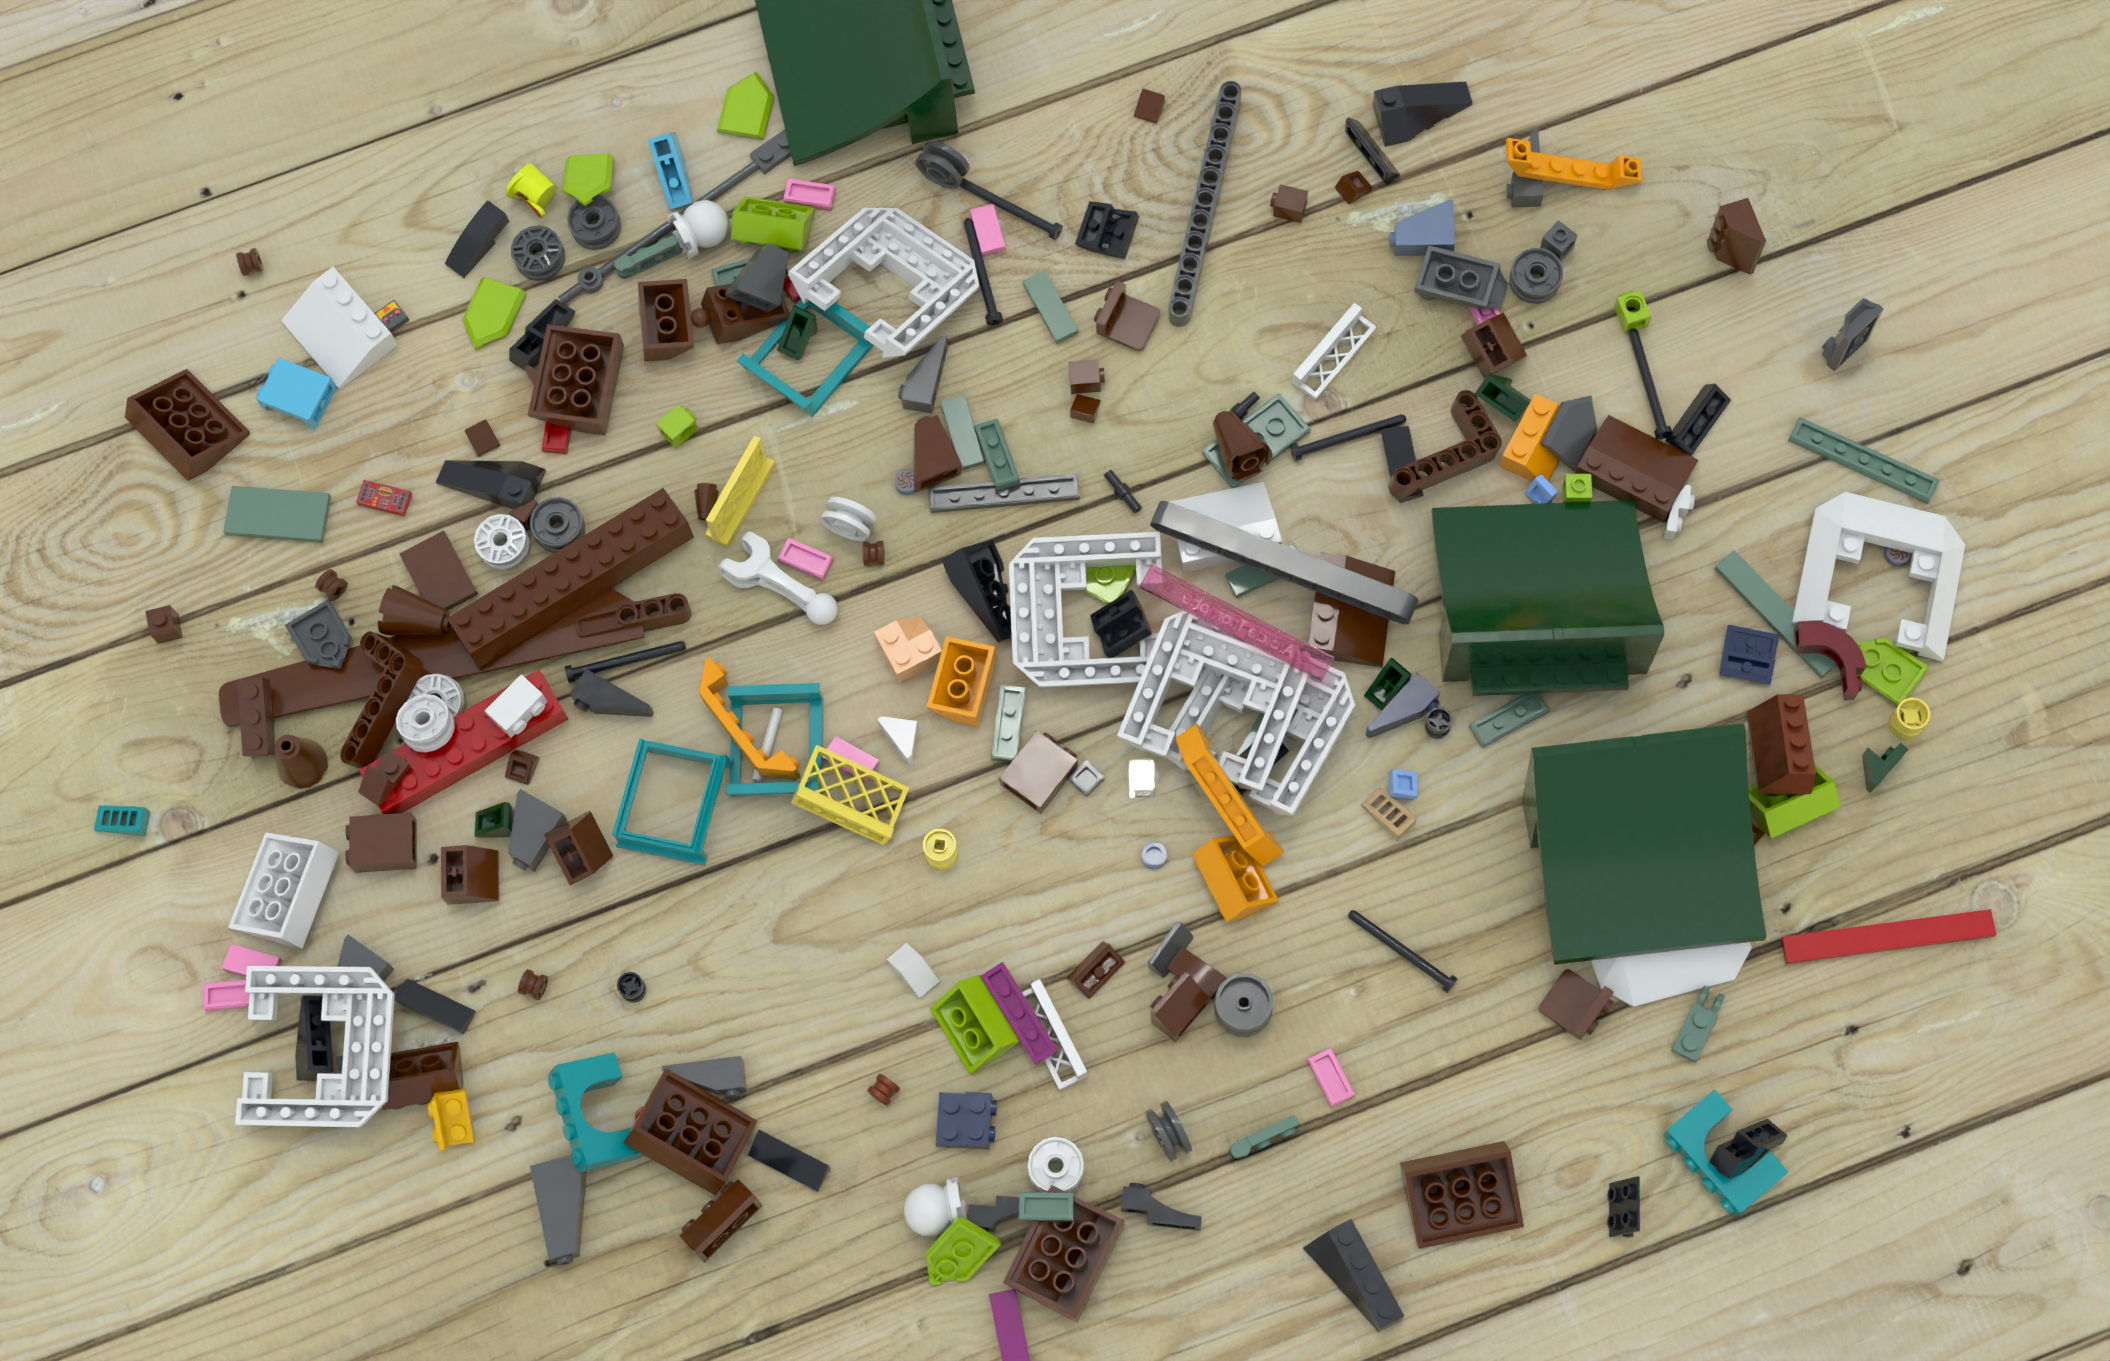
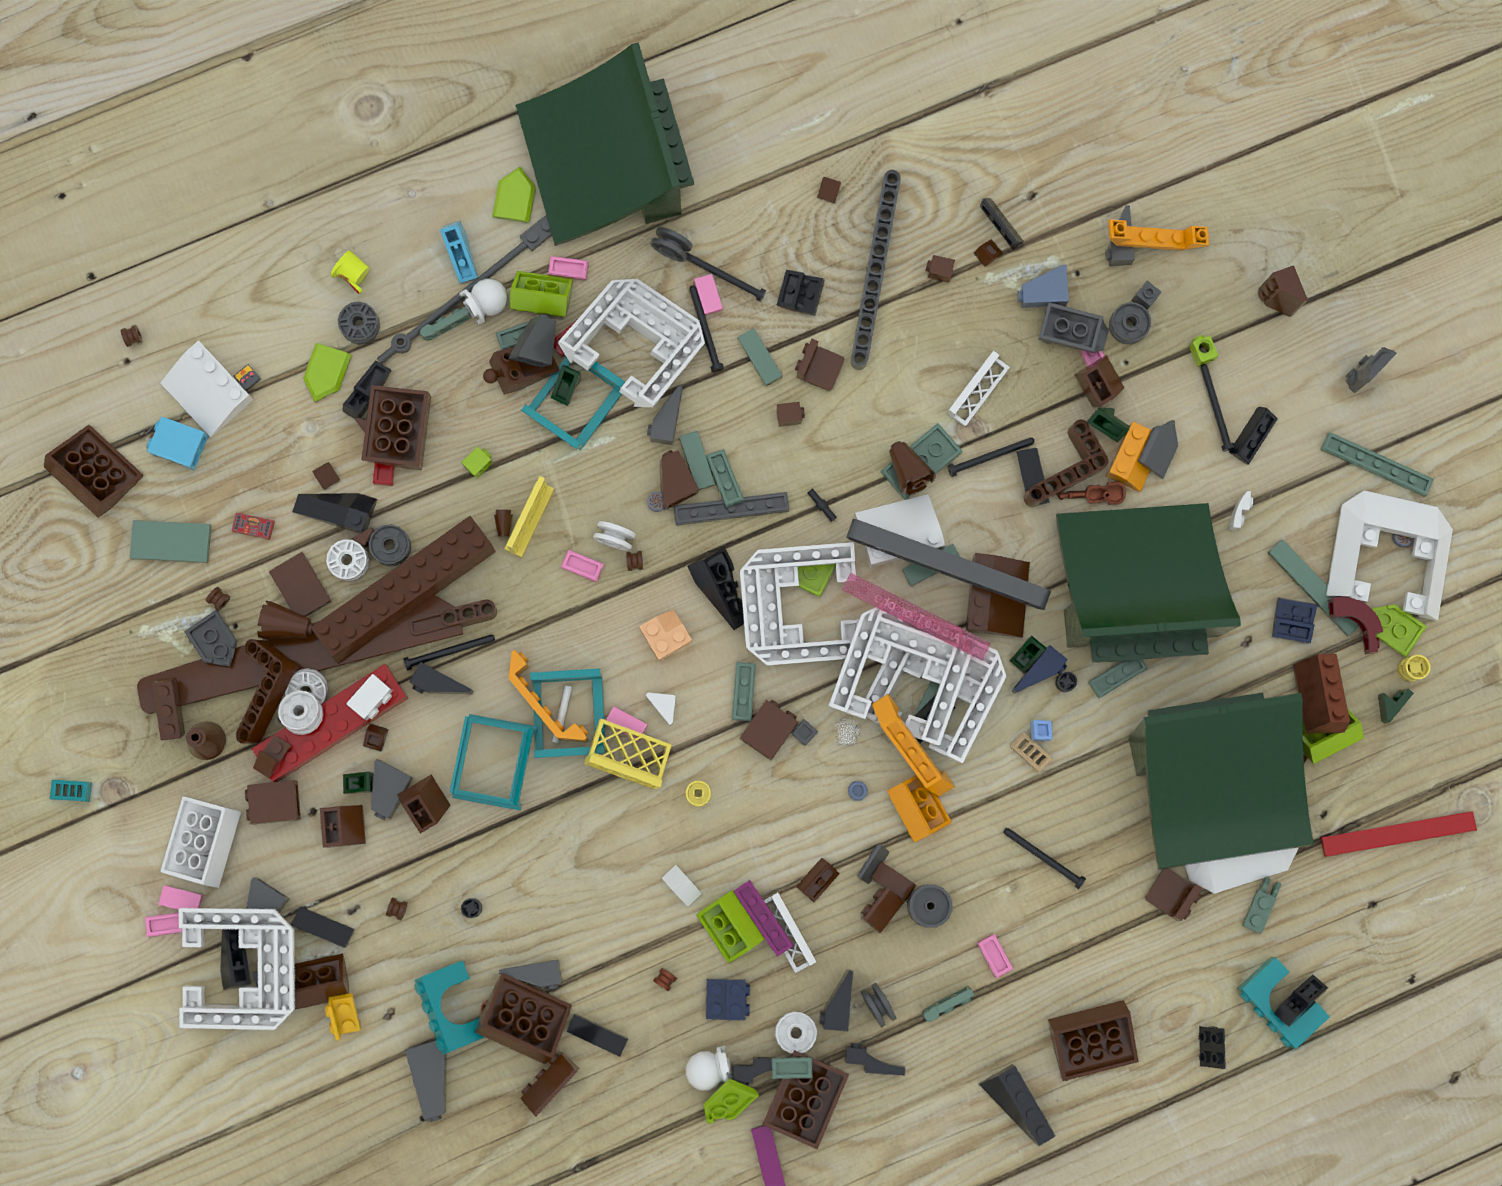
camera: 15 degrees left, 10 degrees up
(163, 624) = (89, 634): reddish brown brick -> none
(476, 239) = (309, 312): black slope -> none
(587, 176) = (393, 259): lime tile -> none
(595, 235) = (395, 286): dark grey wheel -> none
(665, 318) = (462, 376): reddish brown slope -> none
(762, 571) = (548, 577): white piece -> none
(962, 680) = (708, 661): light orange slope -> none
(1085, 408) = (790, 438): reddish brown slope -> none
(1111, 1134) = (837, 1008): none -> black slope
(1120, 624) = (825, 612): black slope -> none
(1240, 409) = (909, 436): black bar -> none
(1411, 109) = (1033, 188): black wedge -> none
(1507, 486) = (1112, 493): none -> copper piece
(1541, 491) = (1138, 497): light blue plate -> none
(1577, 488) = (1165, 495): lime brick -> none
(1636, 467) = (1208, 475): reddish brown slope -> none

